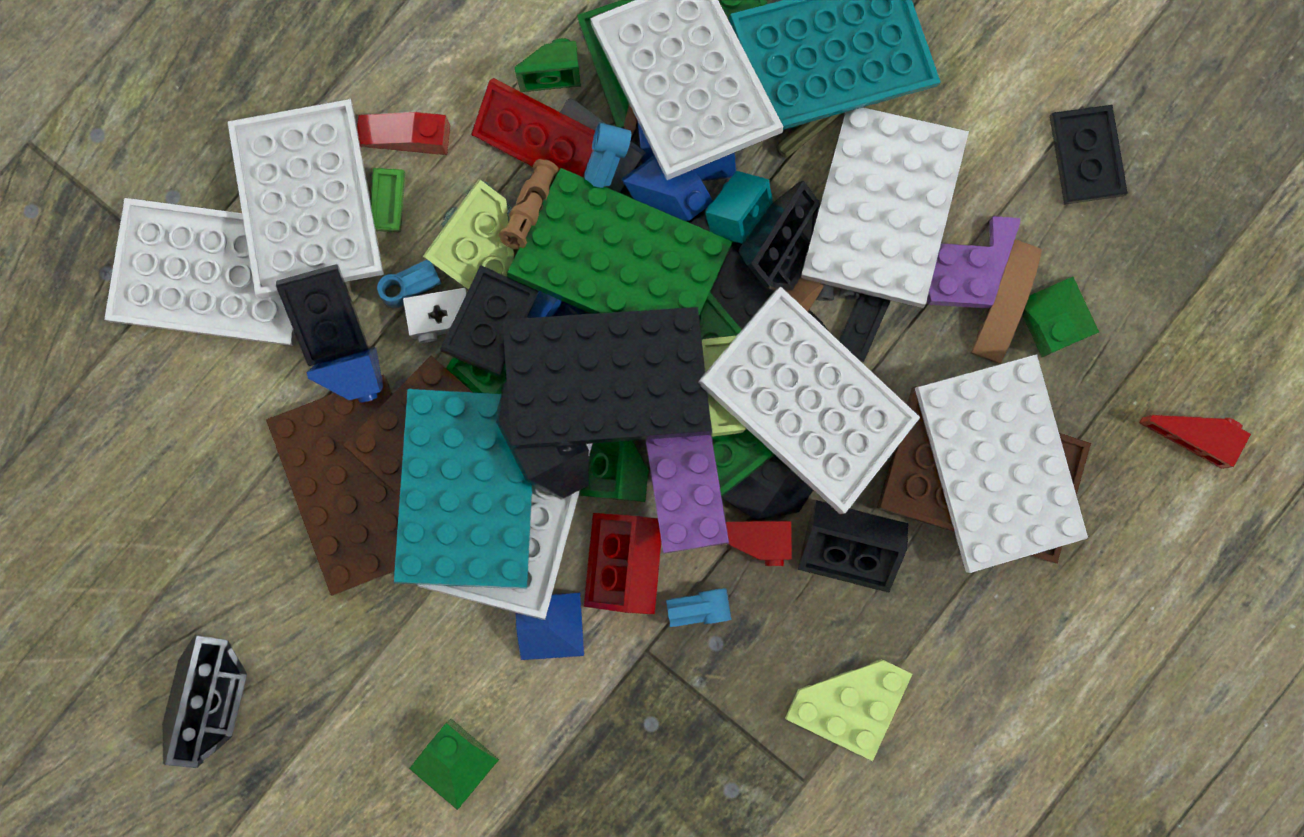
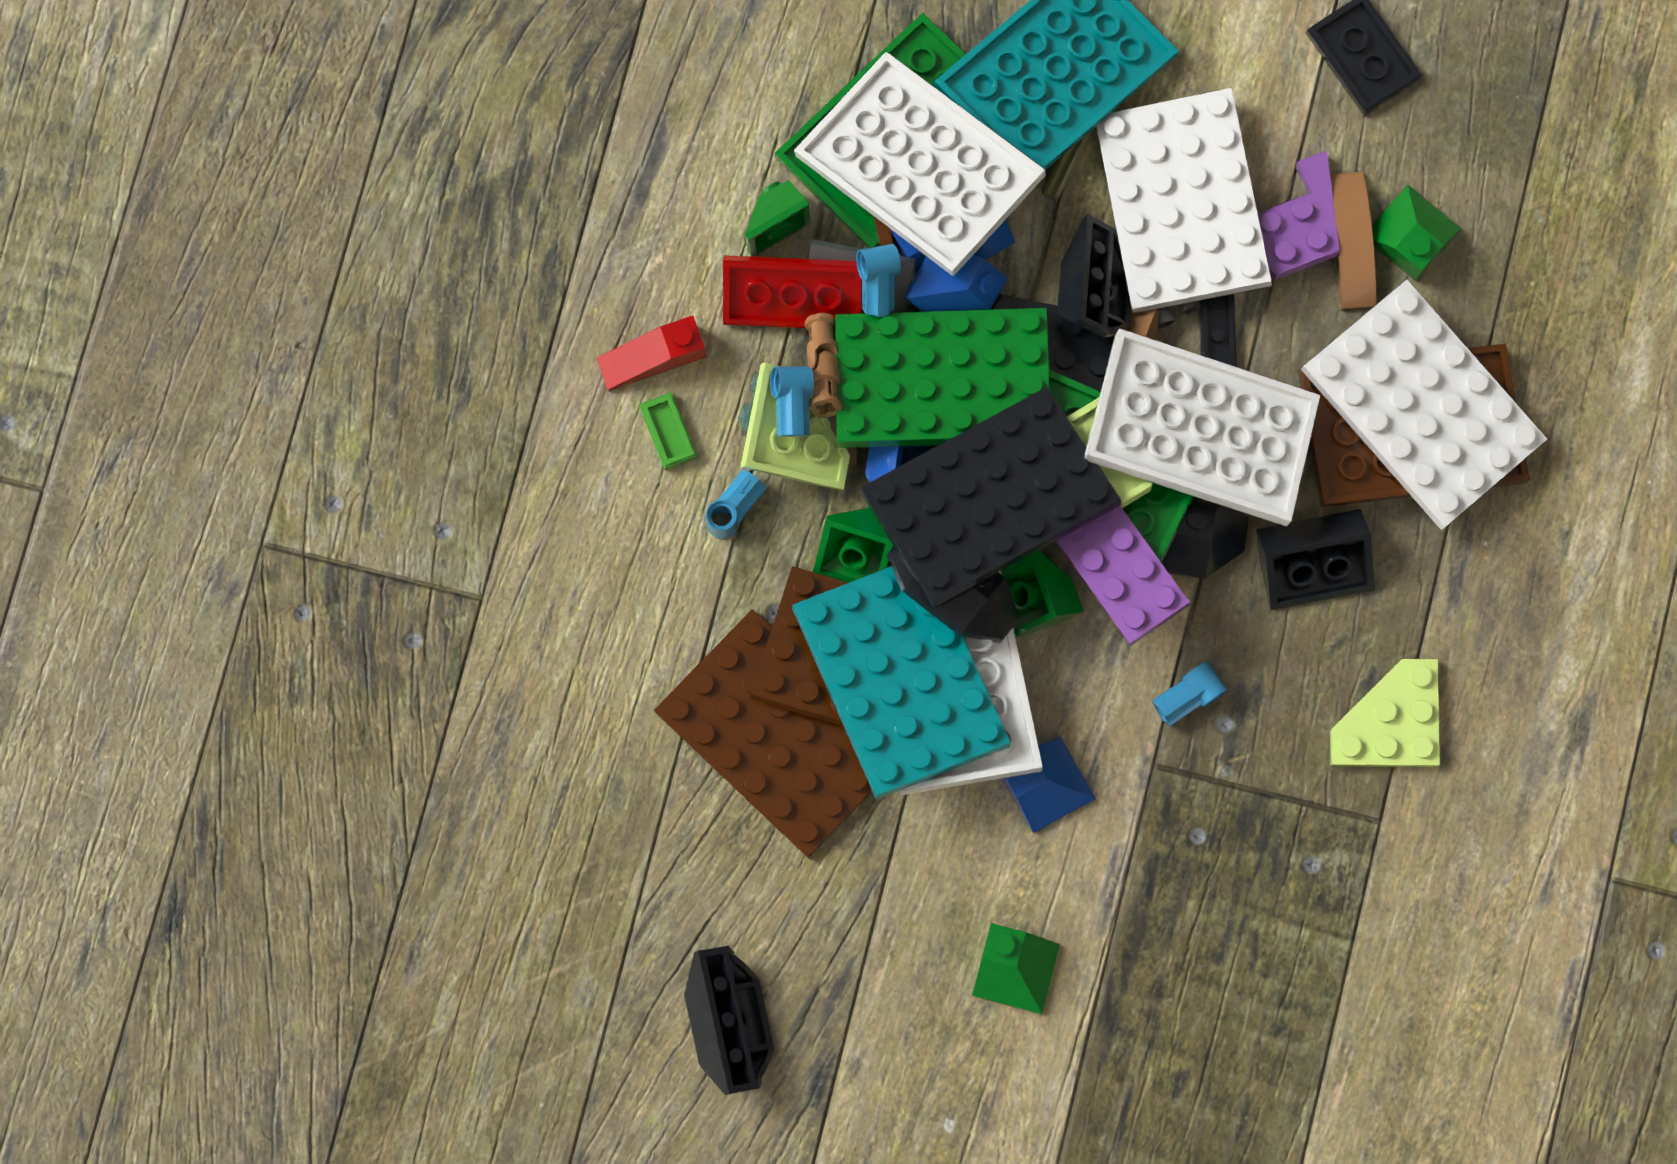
camera: 15 degrees left, 5 degrees down
(190, 275) = (521, 588): white plate -> none
(304, 194) = (588, 465): white plate -> none
(322, 315) = (665, 575): black tile -> none
(350, 375) = (724, 620): blue slope -> none
(423, 308) = (788, 503): white brick -> none
(478, 326) = (835, 509): black tile -> none
(490, 212) = (792, 389): none -> dark azure piece
(623, 563) = (1090, 684): red slope -> none
(739, 206) = (1035, 270): teal brick -> none
(762, 540) = (1221, 596): red slope -> none
(1212, 439) = (1622, 283): red slope -> none

